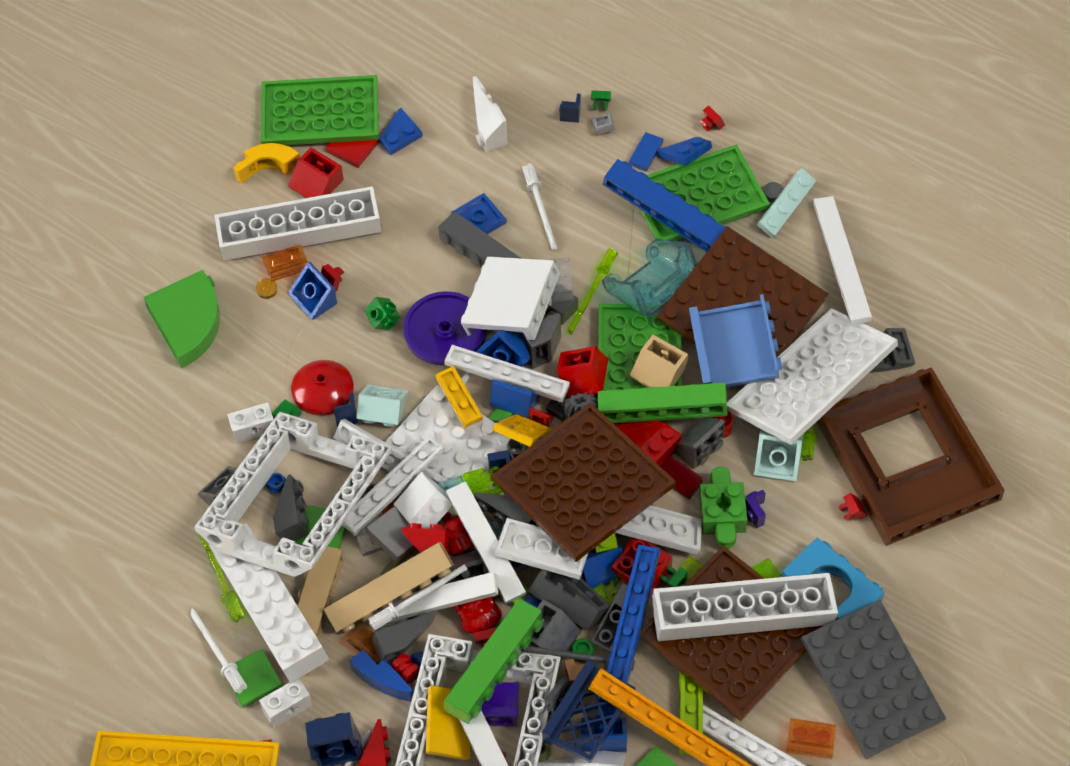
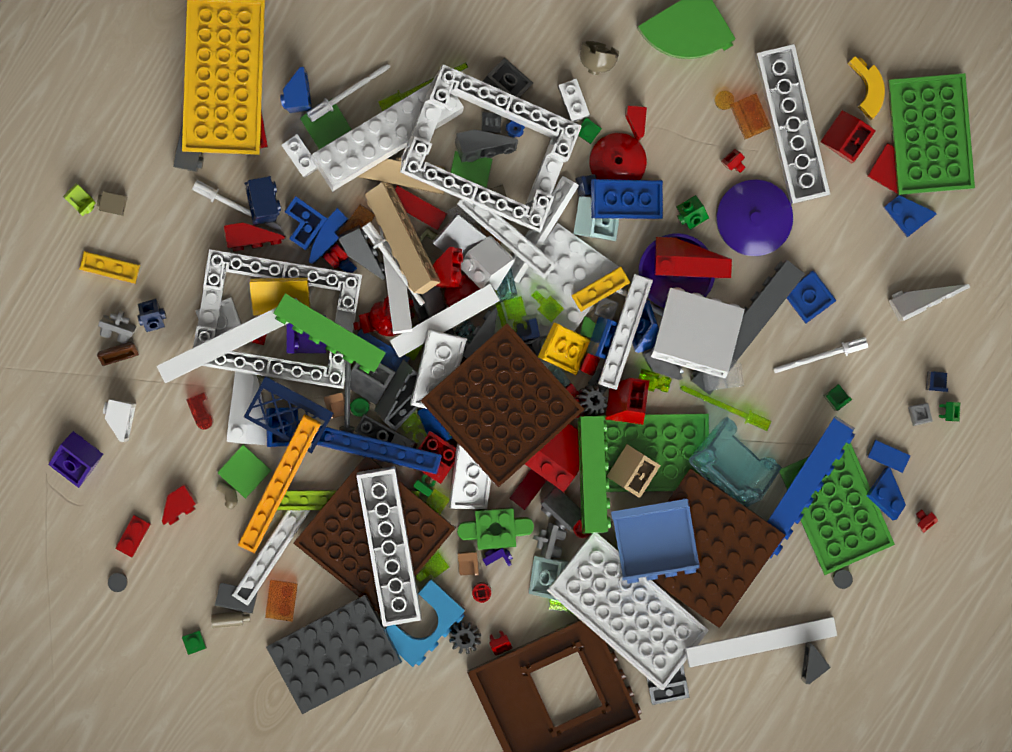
camera: 80 degrees right, 30 degrees up
(208, 398) = (597, 57): none -> dark tan cylinder
(210, 693) = (297, 93): none -> blue slope
(266, 506) = (491, 122): none -> dark grey tile
(275, 369) = (636, 119): none -> red tile
(313, 292) = (716, 143): blue slope -> none
(362, 574) = (420, 209): none -> red tile
(363, 371) = (627, 199): none -> blue tile
(364, 692) = (309, 220): none -> blue brick
(393, 263) = (754, 217): none -> dark purple dish
(432, 317) = (684, 259): none -> red wedge
(476, 447) = (548, 307): none -> clear neon green plate
(481, 398) = (606, 308): none -> light grey tile
(556, 695) = (306, 388): dark grey tile -> none
(561, 347) = (654, 381): none -> clear neon green plate
(586, 192) = (837, 397): none -> green panel
(736, 456) = (547, 540): none -> light grey hips
(763, 537) = (468, 563): none -> medium nougat panel
(786, 202) = (828, 591): light aqua plate -> none
(796, 524) = (481, 592): none -> red wheel
(844, 535) = (471, 635): none -> dark grey gear
(863, 211) = (813, 665): none -> dark grey slope

